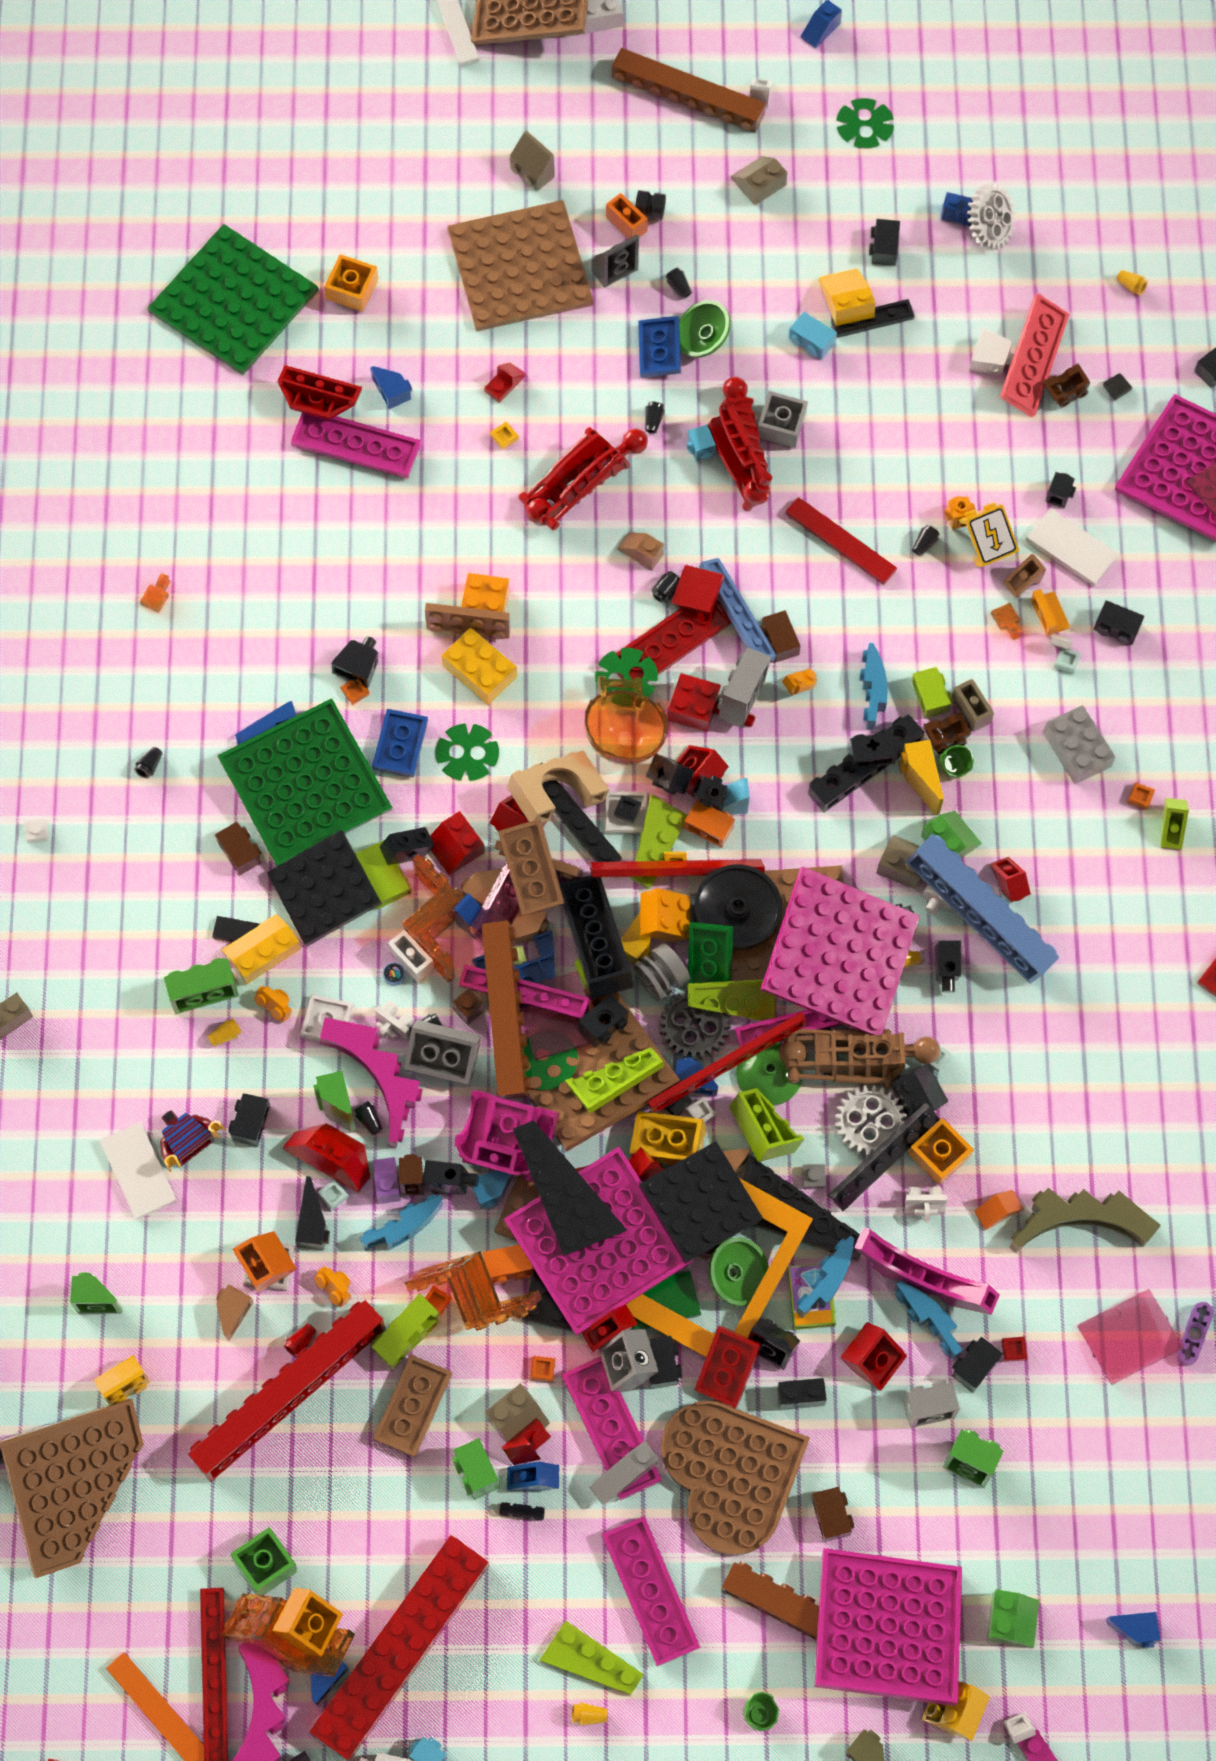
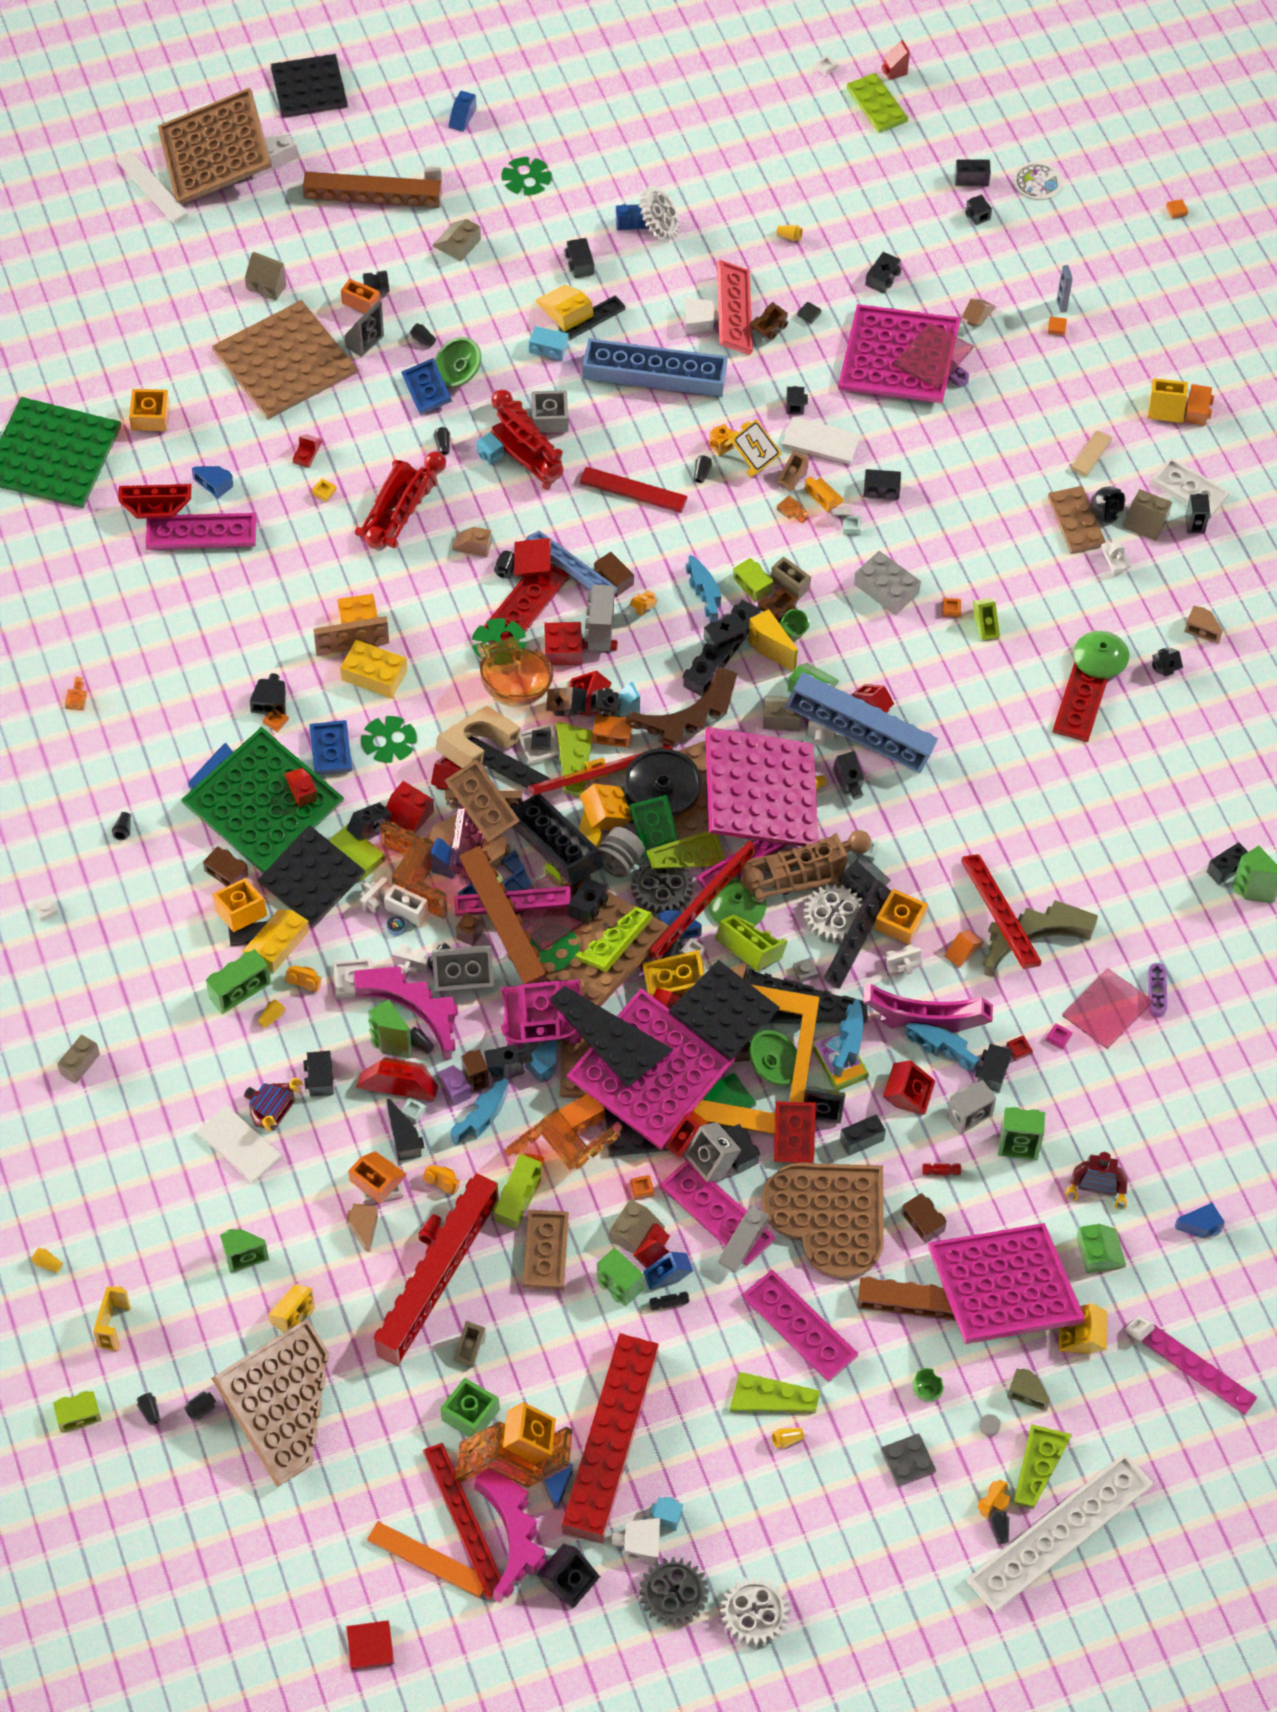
camera: 20 degrees left, 10 degrees down
(235, 897) = (239, 904): none -> light orange brick
(291, 1488) = (469, 1344): none -> dark tan slope
(349, 781) = (301, 787): none -> red slope
(381, 929) = (372, 893): none -> white hips
(831, 825) = (671, 726): none -> reddish brown arch
(873, 1462) = (941, 1169): none -> red axle
(918, 402) = (655, 367): none -> medium blue brick
(1044, 1535) = (1101, 1176): none -> dark red torso
(1053, 1184) = (1001, 911): none -> red tile
(1064, 1350) = (1059, 1036): none -> dark pink tile

